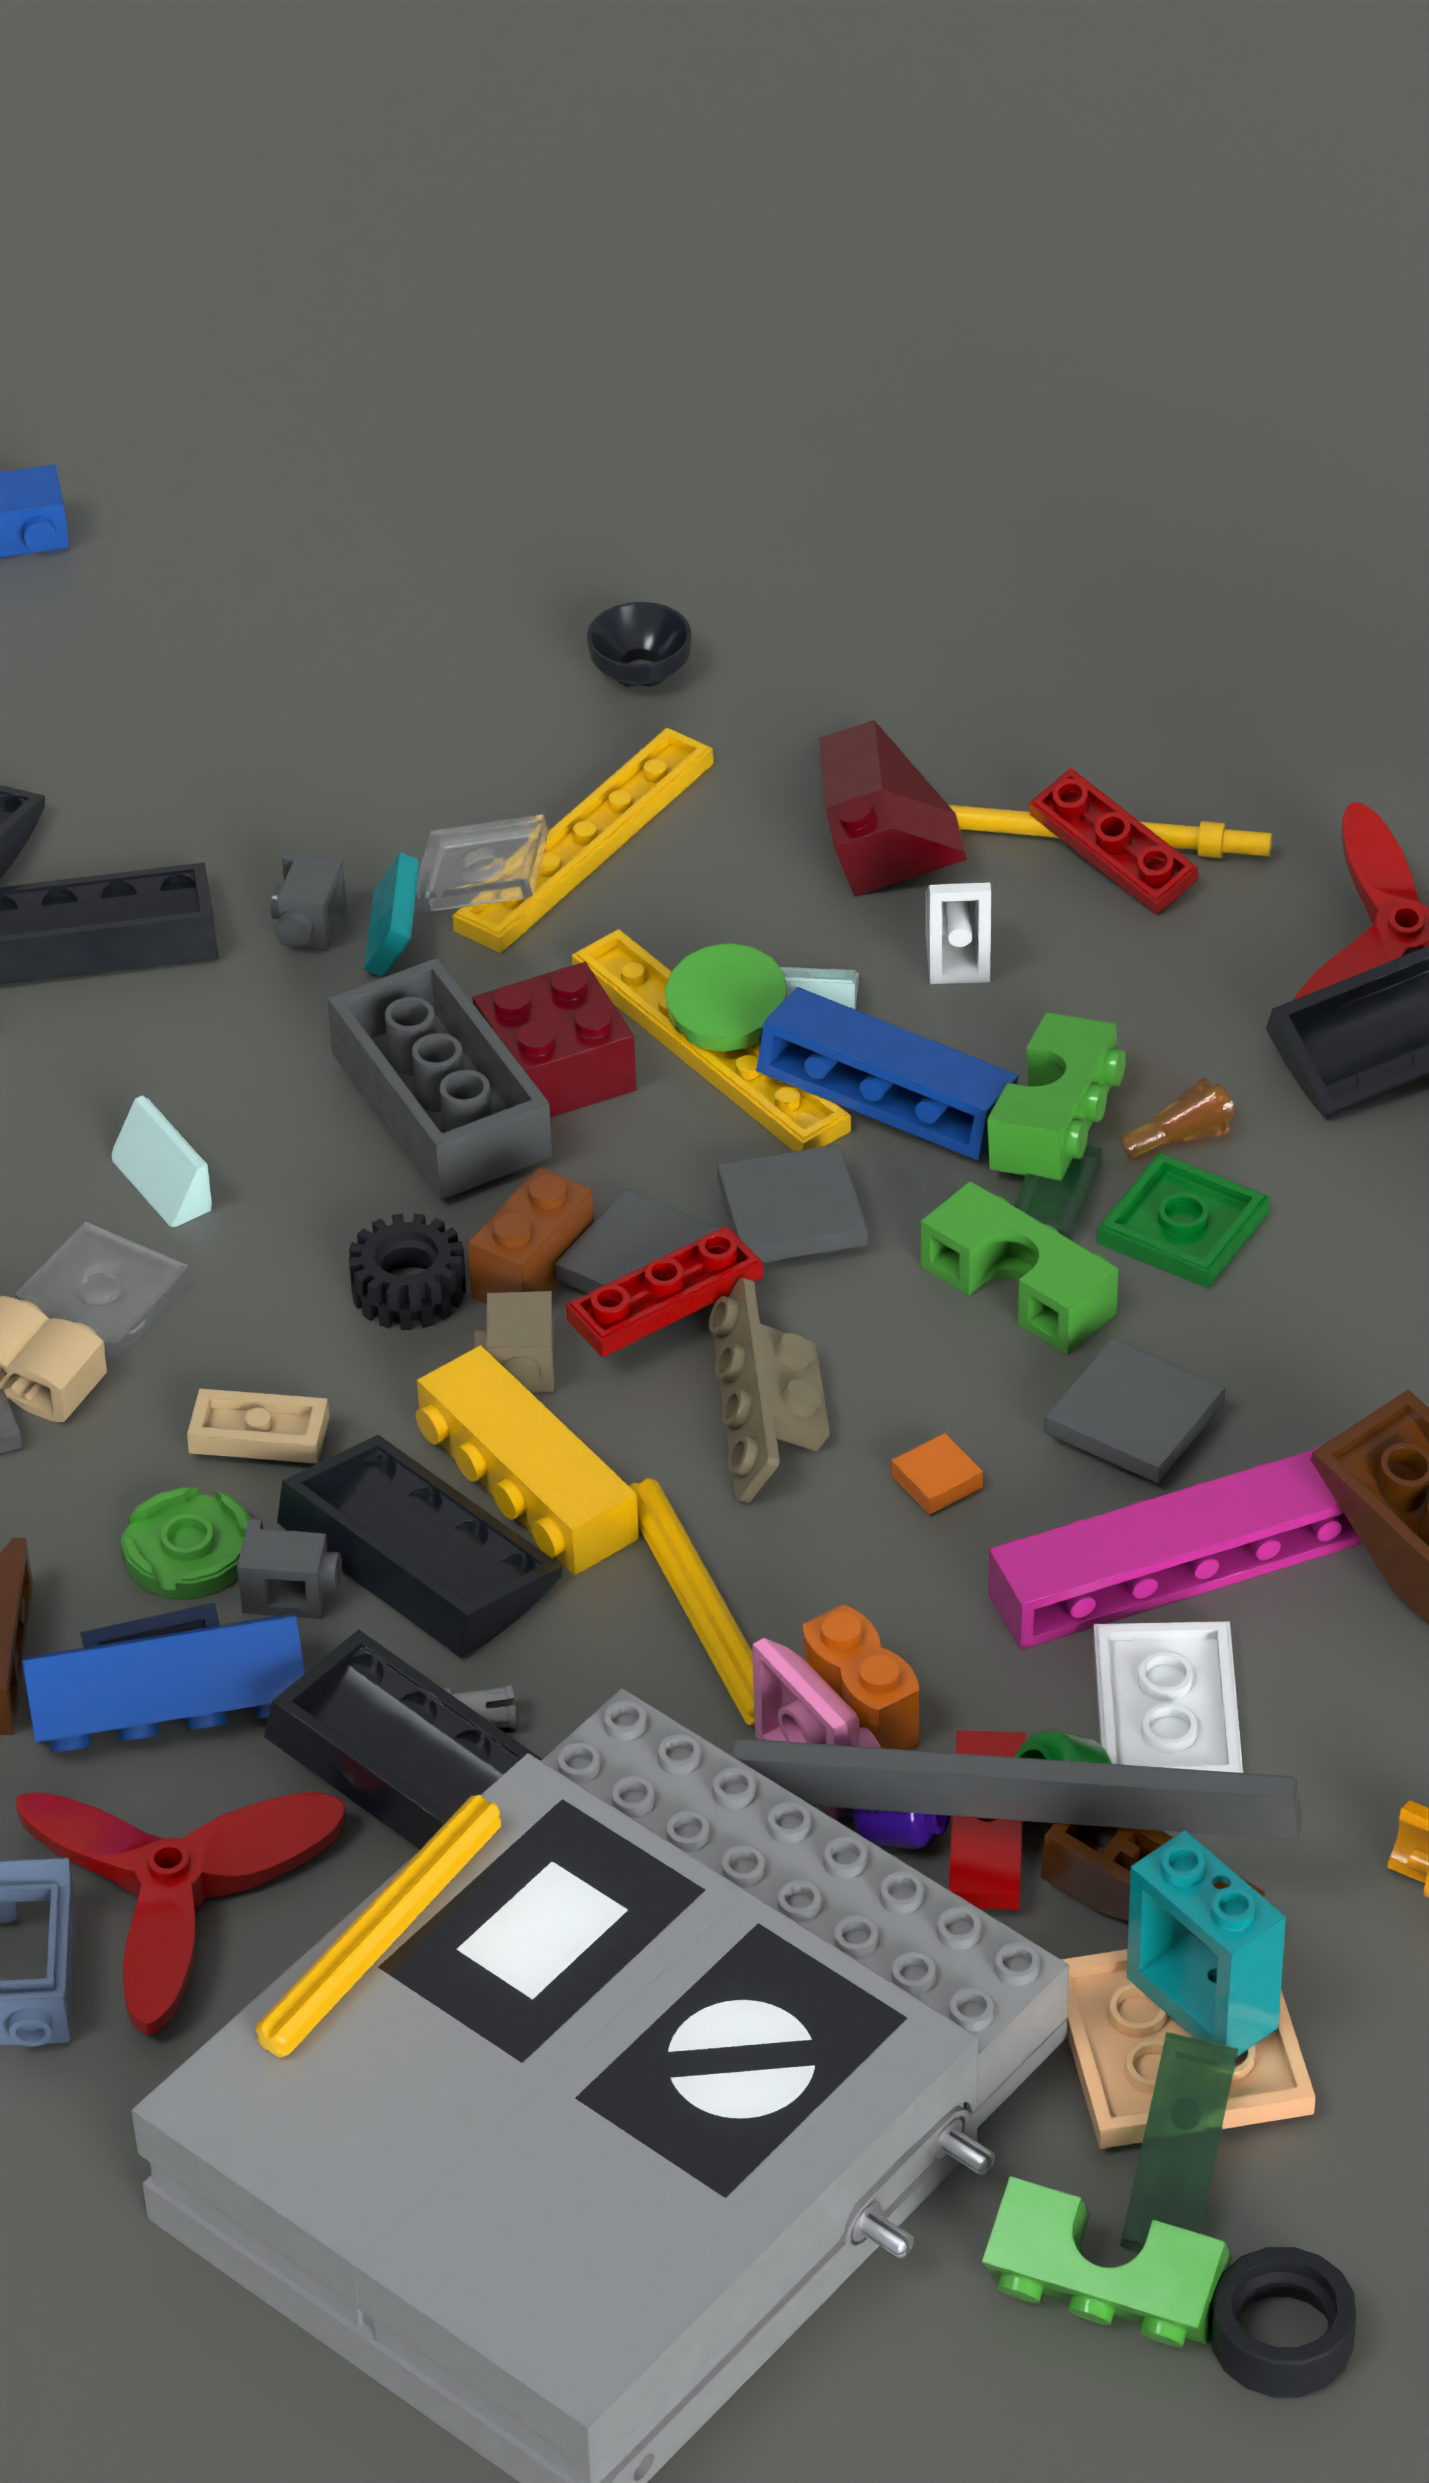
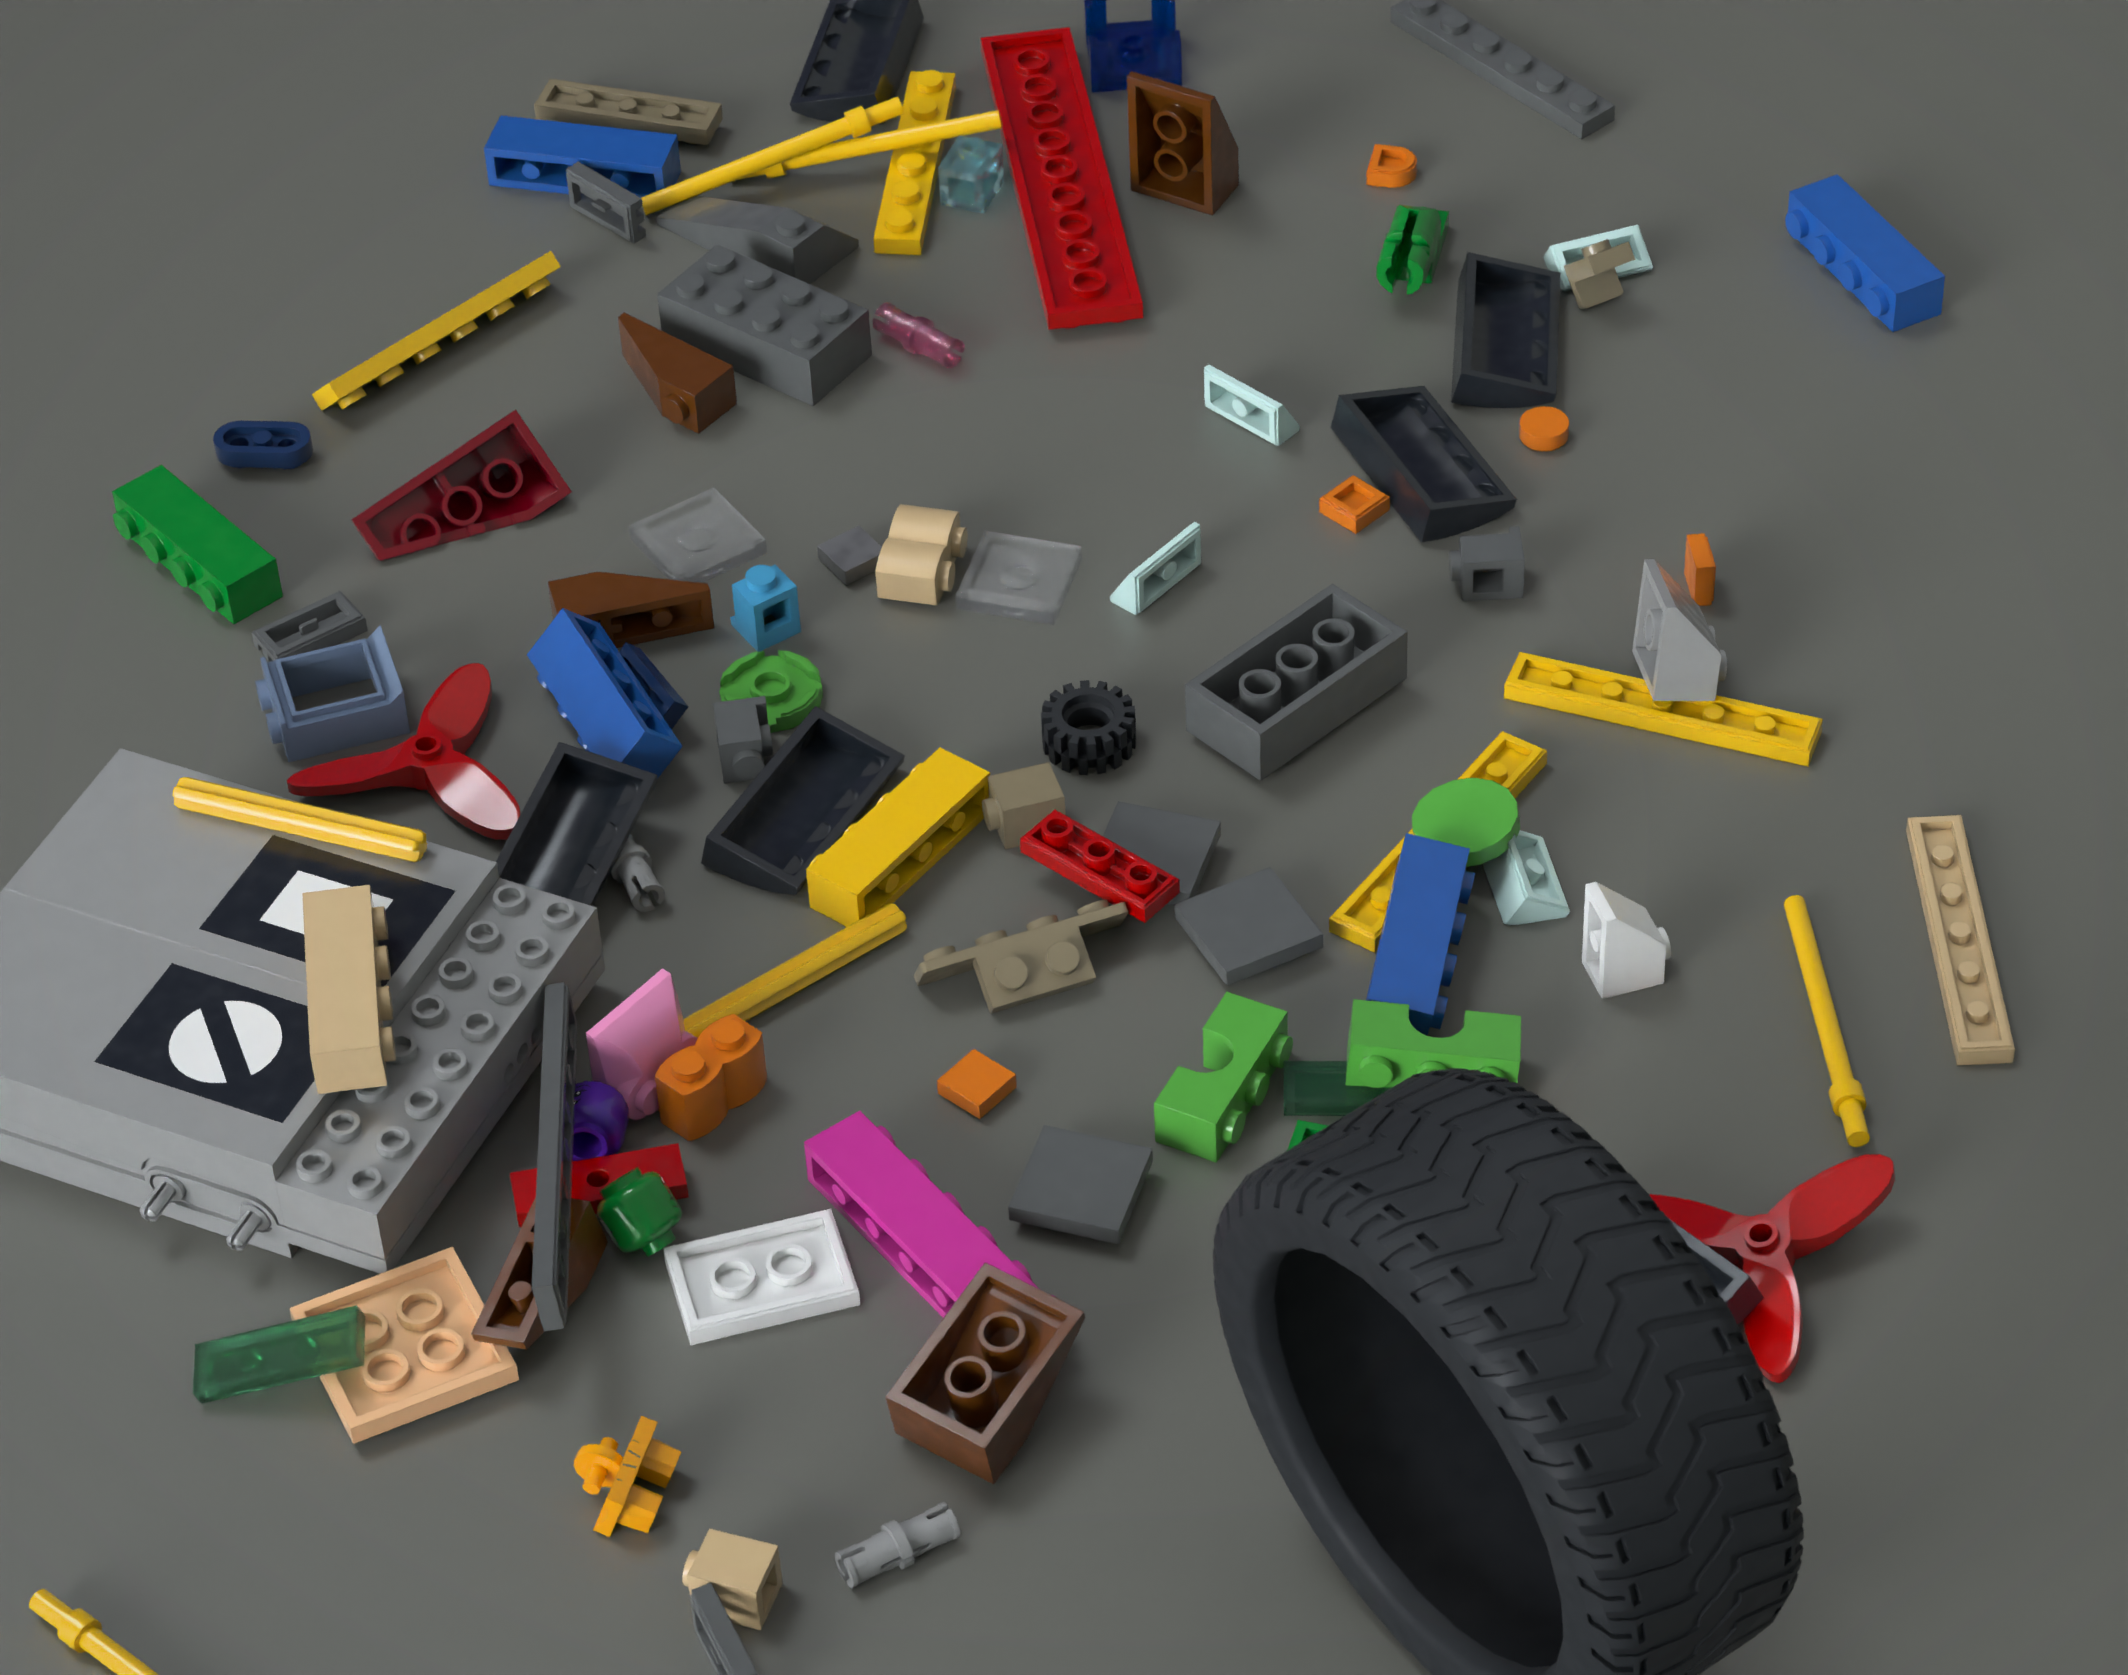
camera: 75 degrees right, 0 degrees up
(57, 1509) = (764, 593): none -> dark azure brick
(87, 822) = (1544, 428): none -> orange tile
(128, 993) = (1354, 504): none -> orange tile
(258, 1426) = (893, 691): tan plate -> none
(391, 915) = (1495, 614): teal tile -> none
(399, 754) = (1700, 569): none -> orange tile
(481, 863) = (1581, 648): clear tile -> none
(529, 1236) = (1133, 774): dark orange brick -> none
(534, 773) = (1674, 641): none -> light grey slope
(564, 1036) = (1375, 740): dark red brick -> none
(639, 633) = (1913, 659): black piece -> none
(728, 1905) = (346, 990): none -> tan brick
(884, 811) = (1751, 868): dark red wedge -> none
(1016, 718) = (1960, 941): none -> tan tile
(1113, 841) = (1800, 1028): red tile -> none
(1164, 2288) = (145, 1366): arch -> none
(1212, 1996) = (402, 1343): teal window -> none
(1283, 2274) = (140, 1488): black tyre -> none

